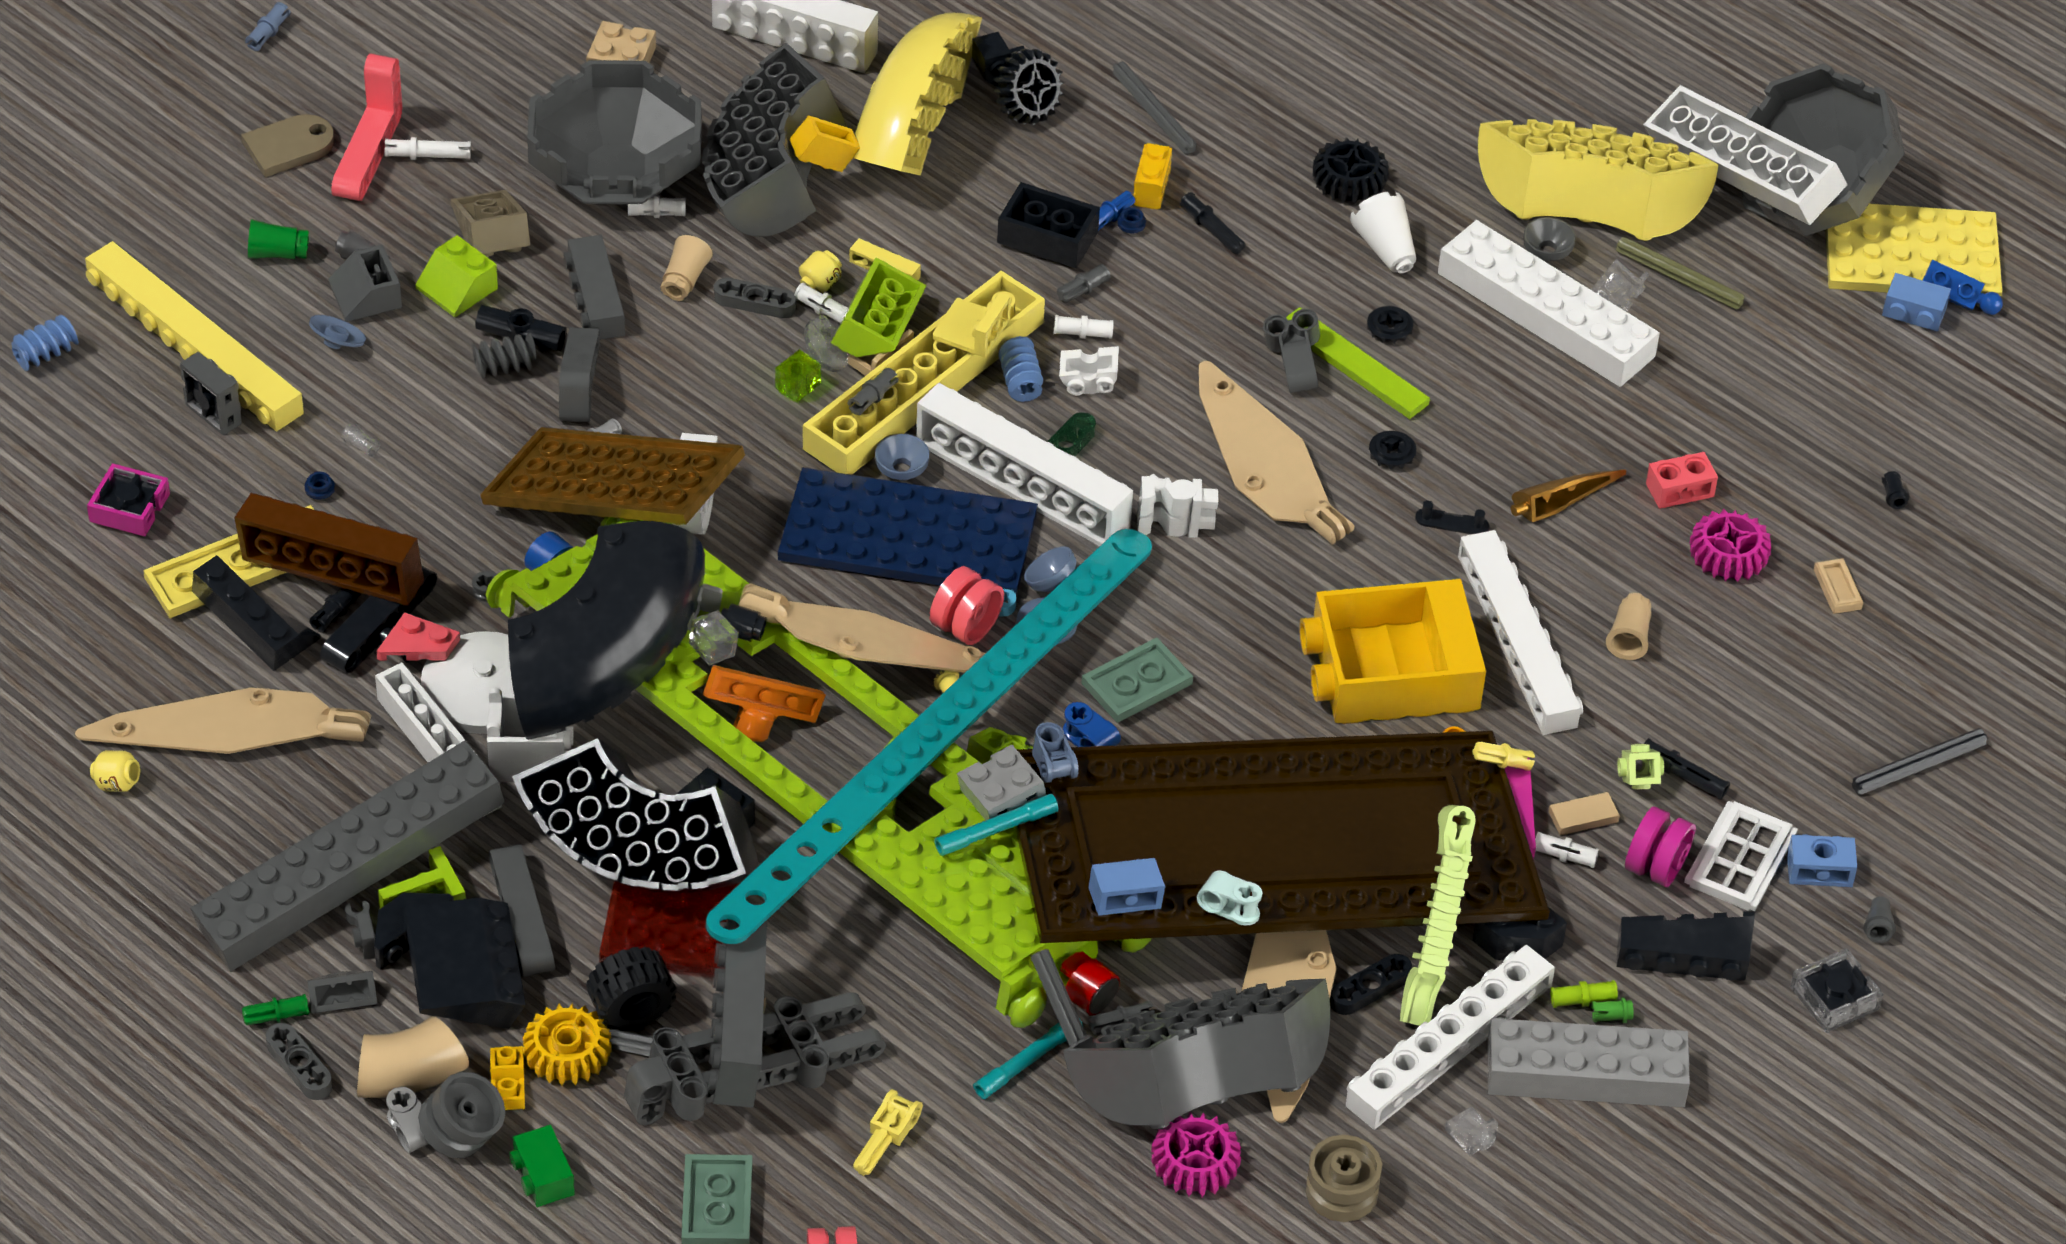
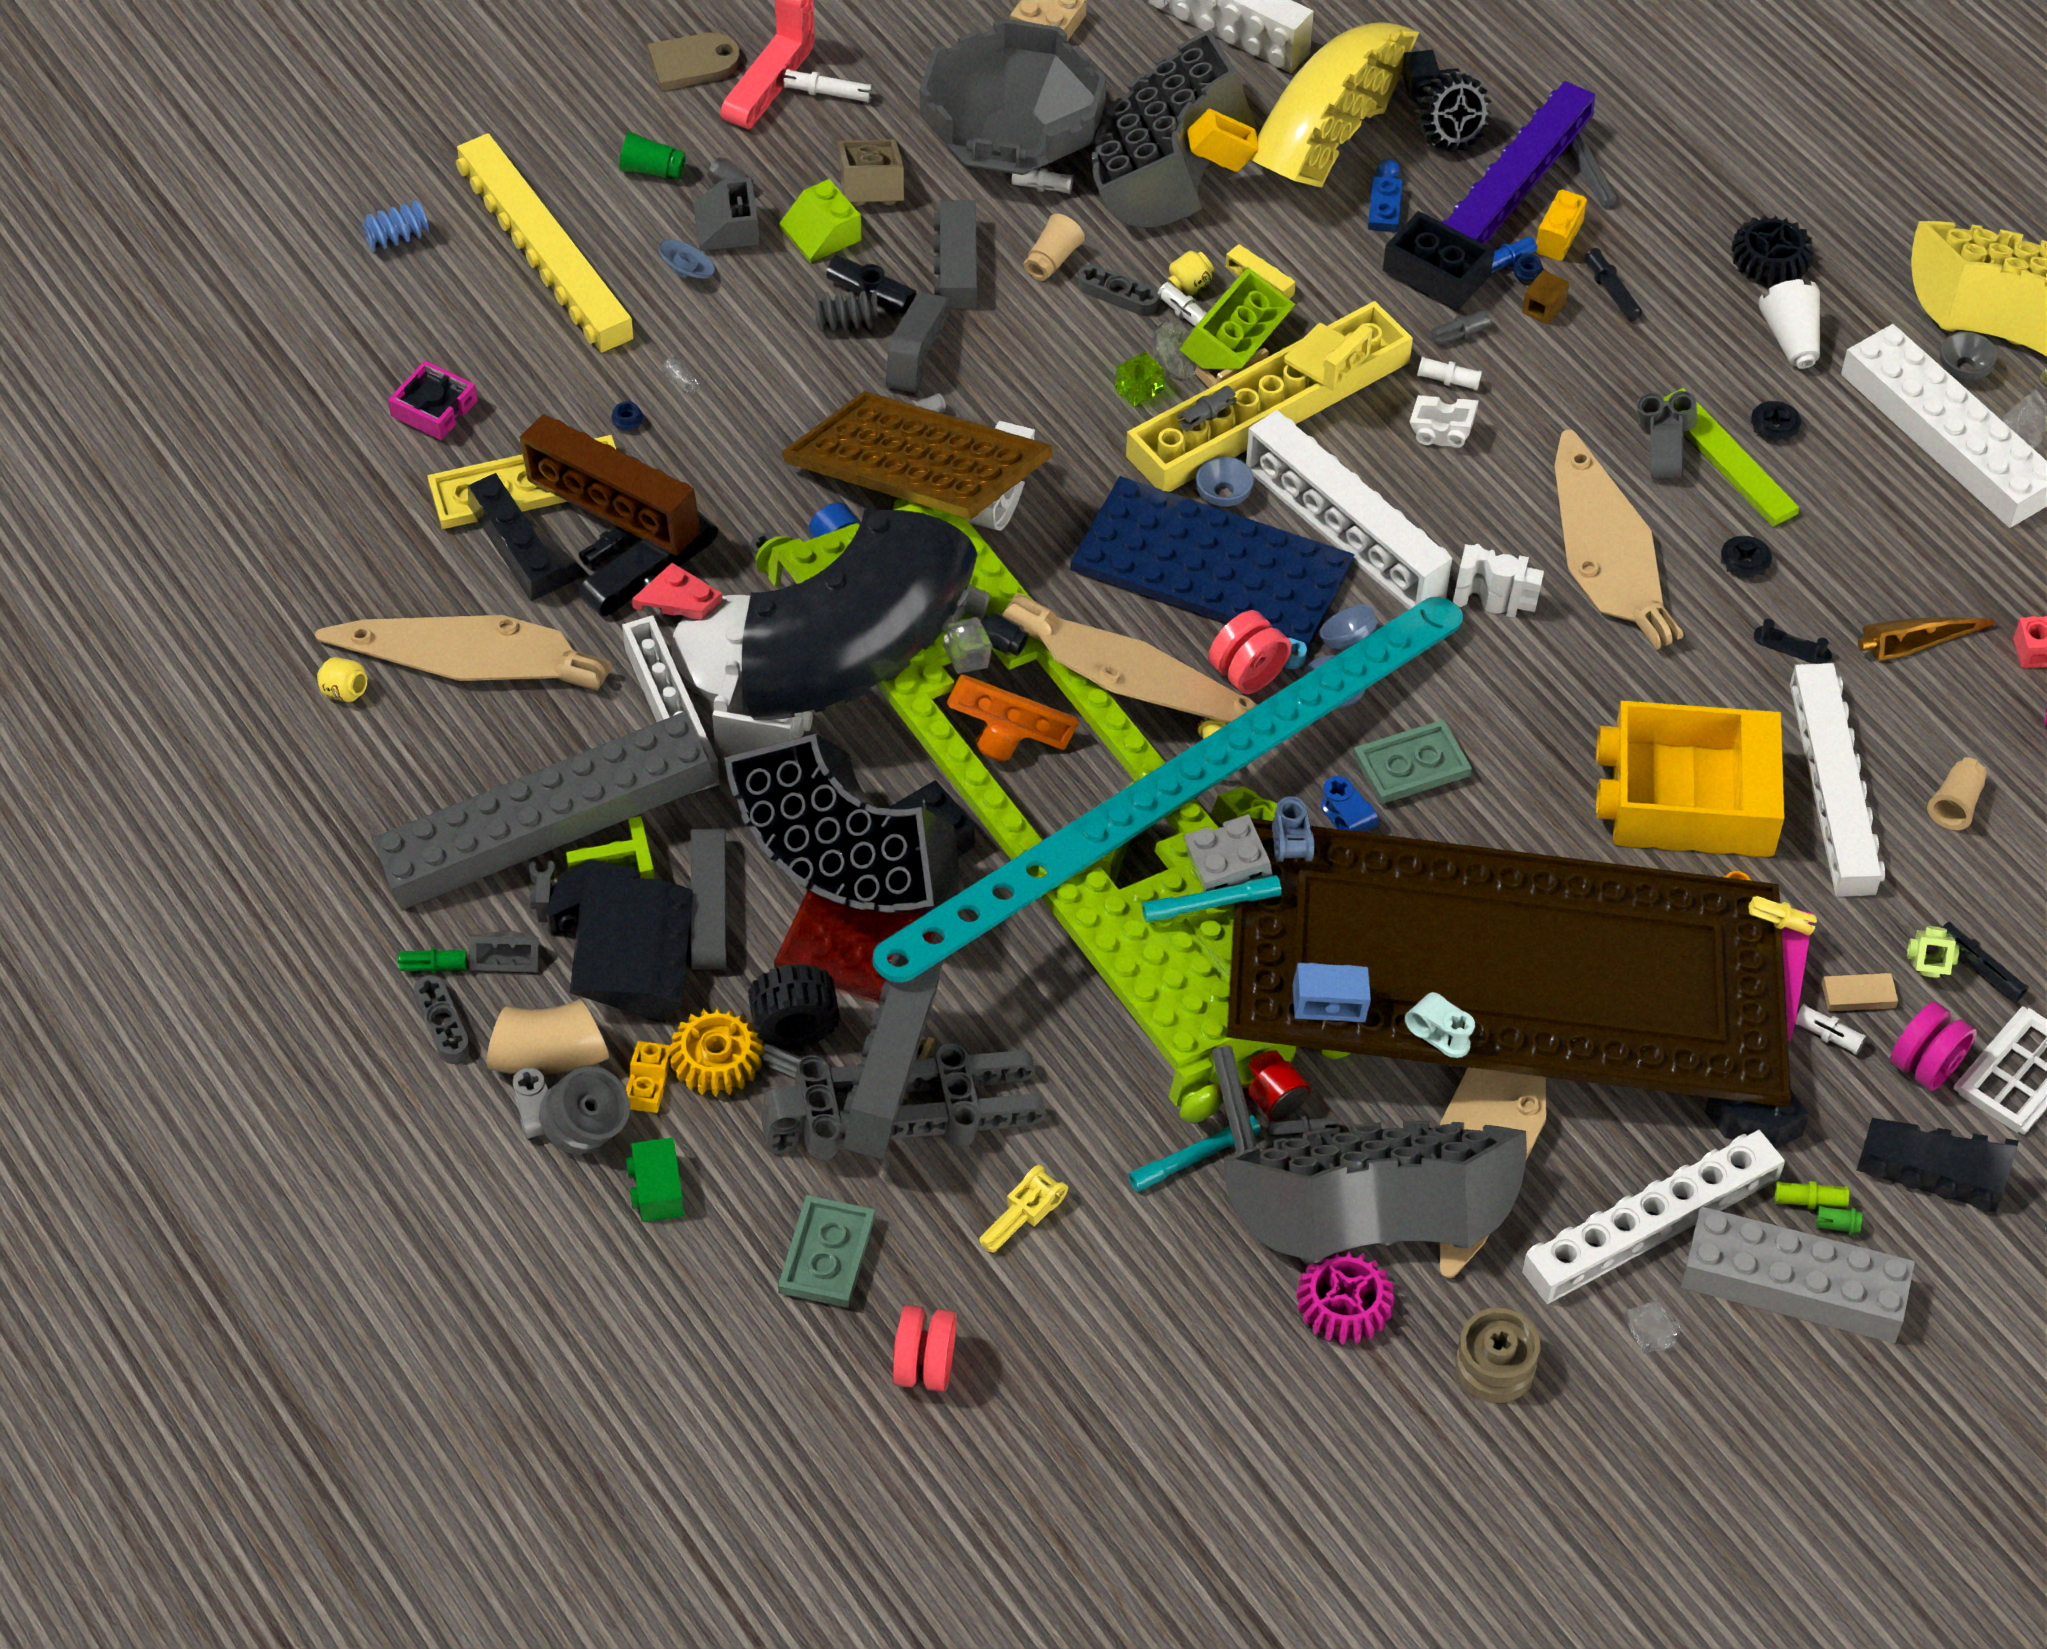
camera: 15 degrees right, 5 degrees up
(211, 393) = (542, 303): dark grey piece -> none
(983, 175) = (1385, 197): none -> blue plate
(1021, 369) = (1372, 408): medium blue piece -> none
(1068, 432) = (1406, 483): clear green beam -> none
(1104, 123) = (1523, 162): none -> dark purple brick
(1154, 244) = (1545, 297): none -> pearl gold brick
(1365, 996) = (1590, 1128): black beam -> none
(1425, 981) = (1698, 1016): yellowish green piece -> none

